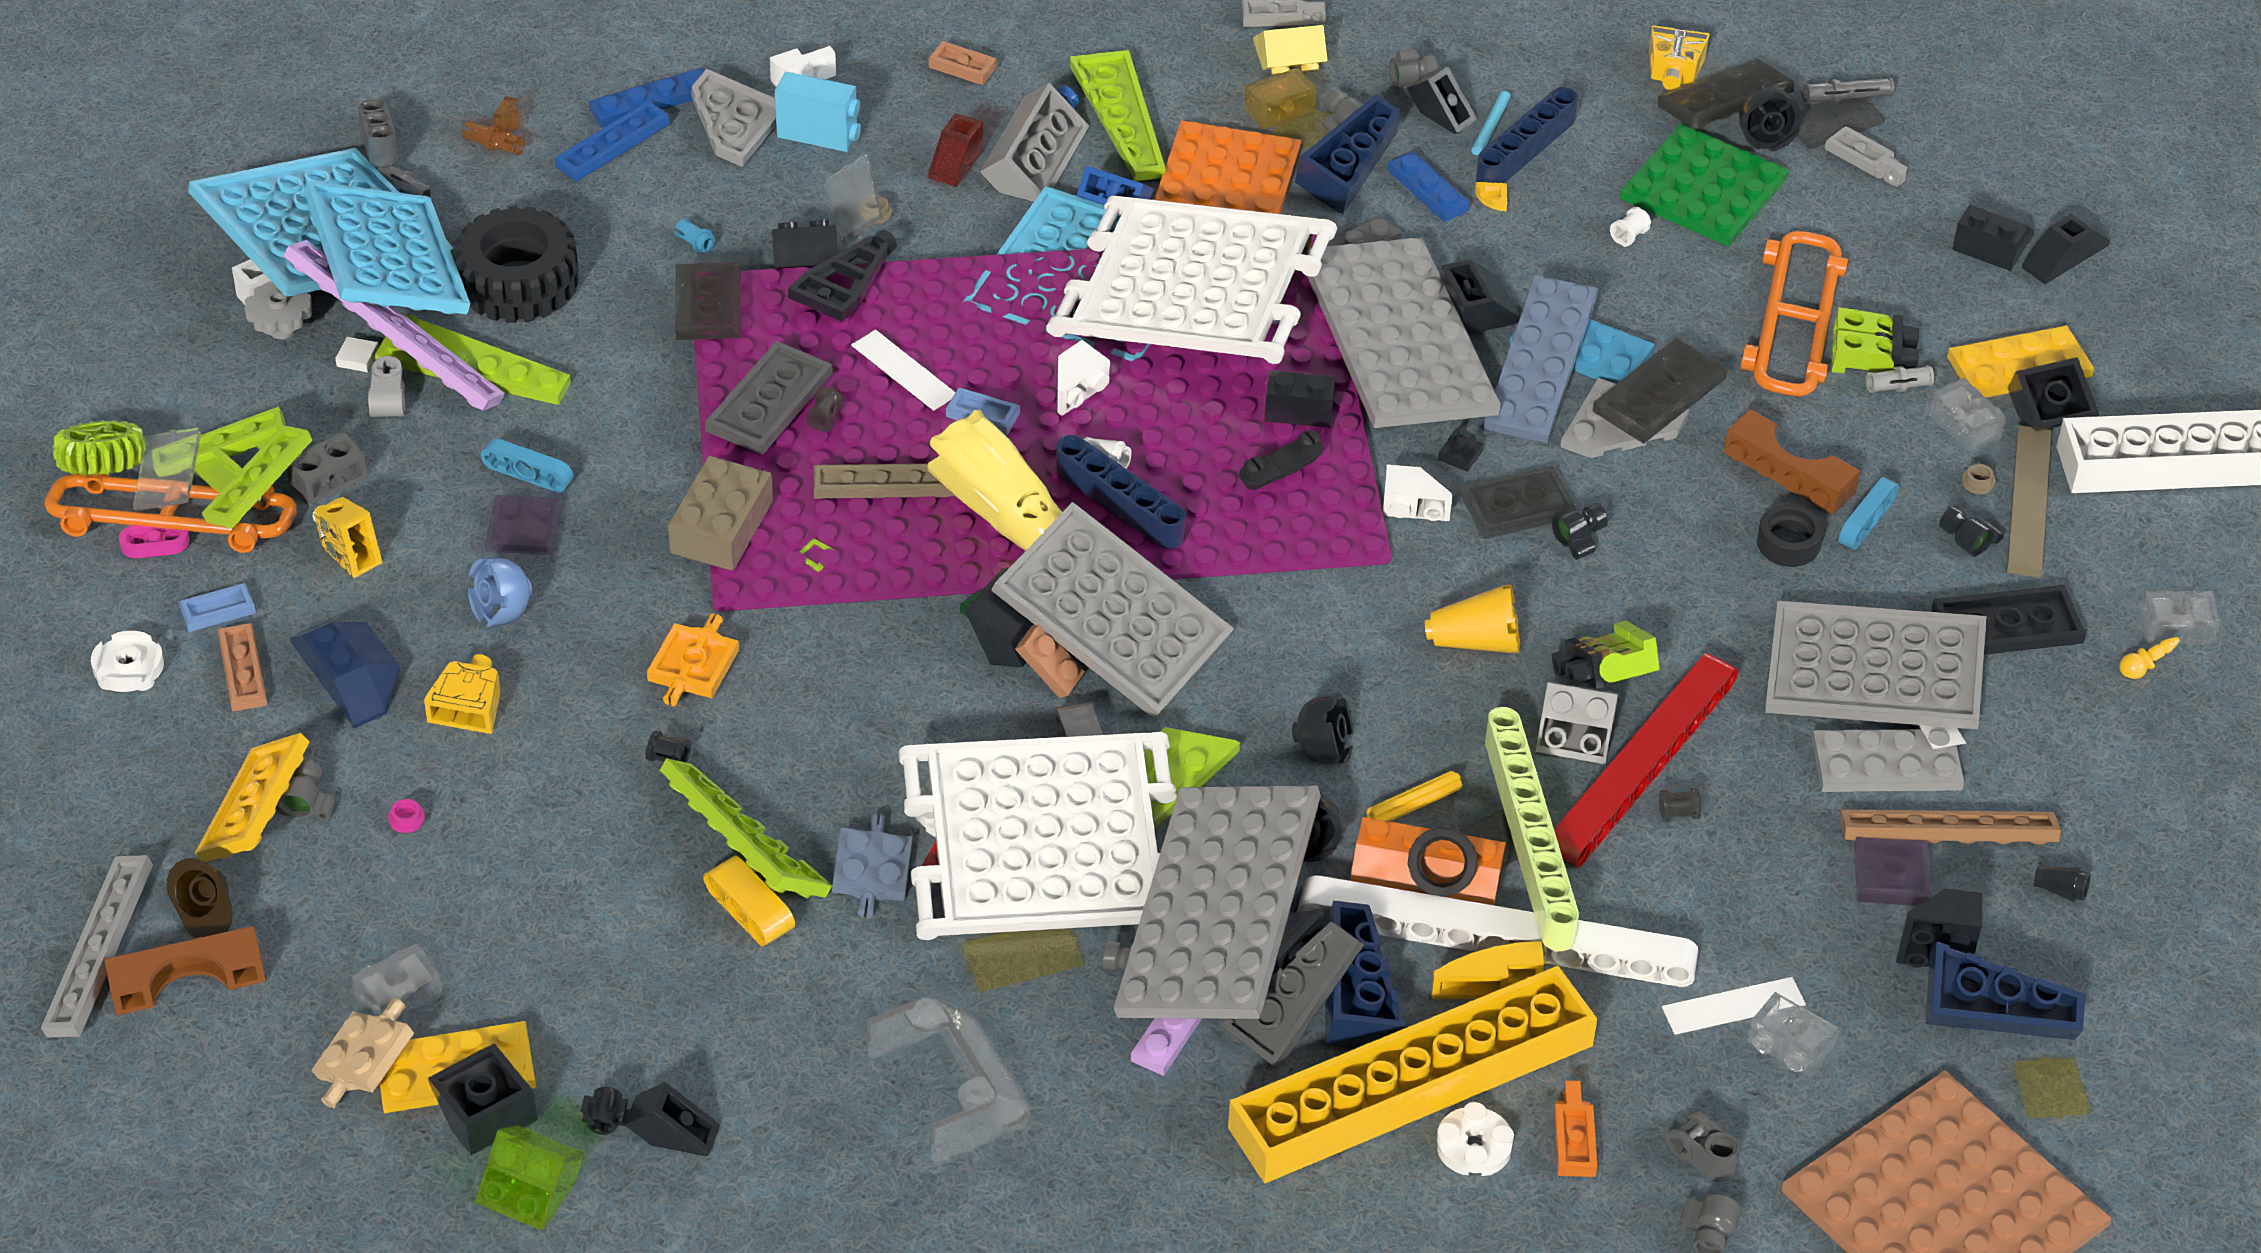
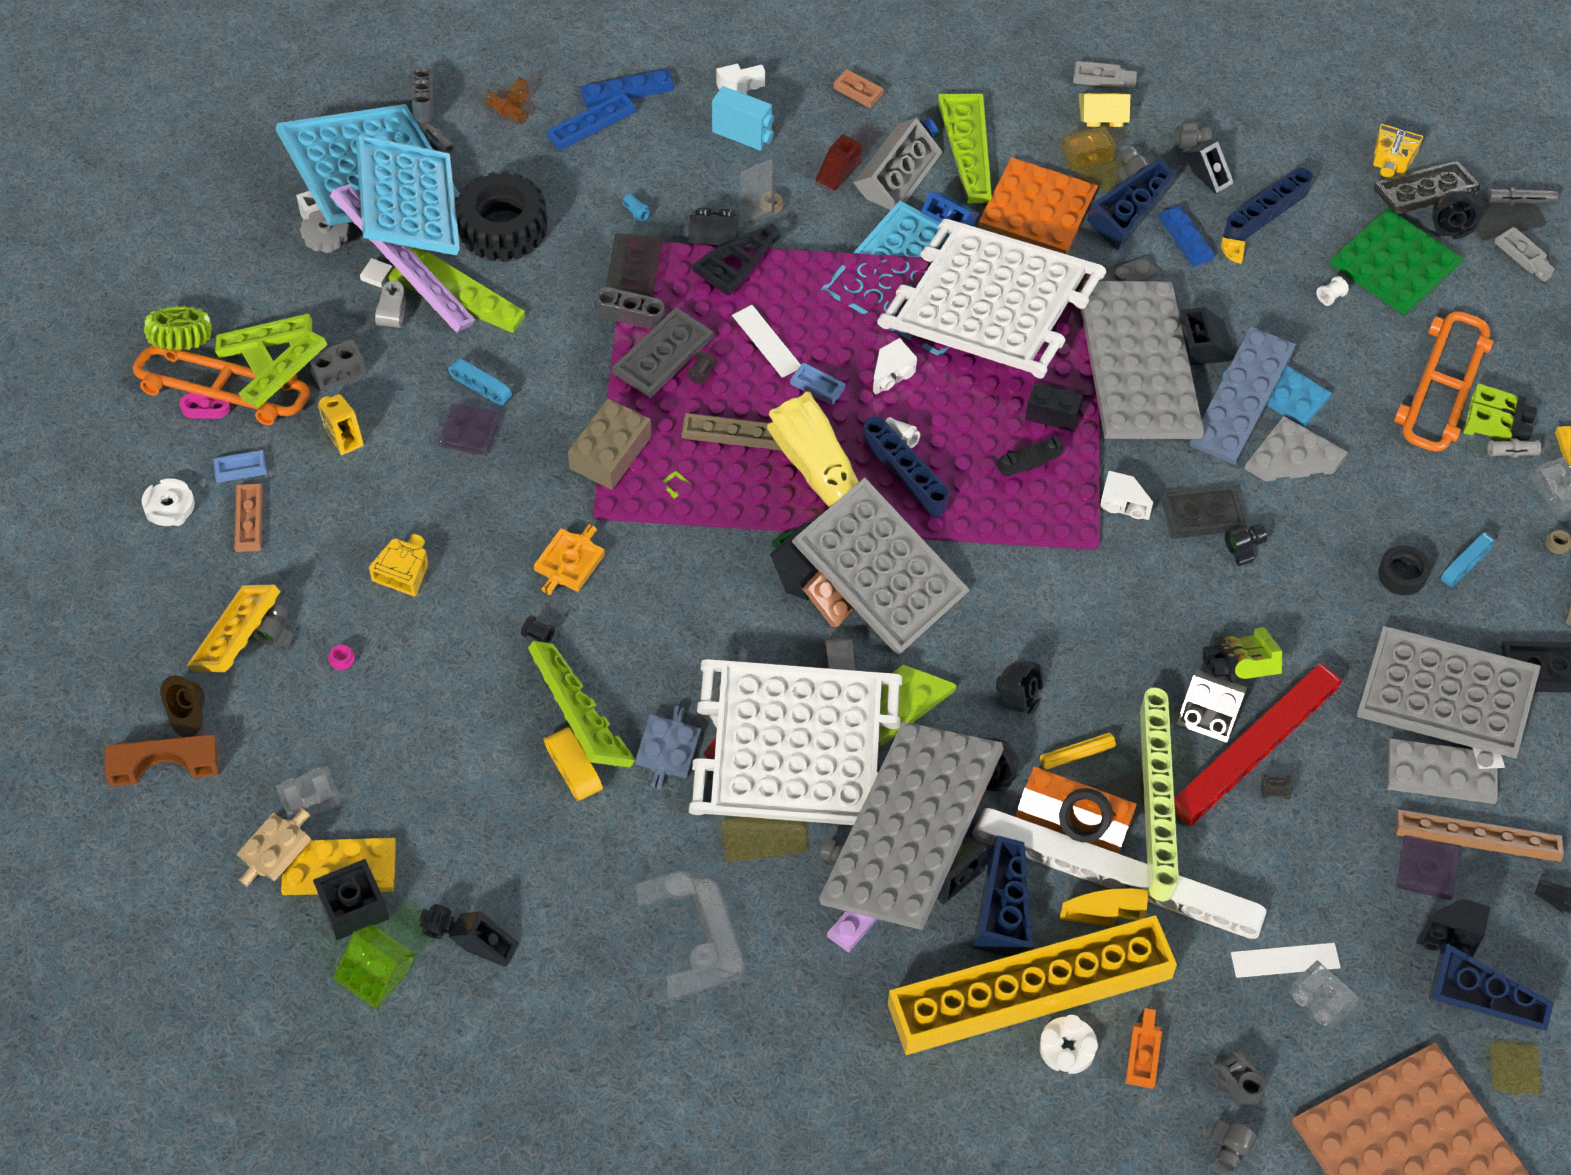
camera: 10 degrees right, 10 degrees up
(97, 942) = (104, 731): light grey plate -> none
(167, 469) = (222, 351): clear piece -> none
(350, 667) = (324, 529): dark blue wedge -> none
(498, 583) = (440, 479): medium blue cylinder -> none
(713, 349) = (615, 305): none -> flat silver beam
(733, 116) = (682, 112): light grey plate -> none
(1297, 994) = (958, 908): dark grey wing -> none
(1460, 450) = (1168, 463): black tile -> none
(1477, 623) = (1152, 613): yellow cone -> none
(1491, 122) = (1244, 187): medium azure bar -> none
(1659, 390) = (1327, 436): clear smoke plate -> none
(1821, 481) = (1437, 528): dark orange arch -> none
(1969, 533) = (1543, 589): black piece -> none

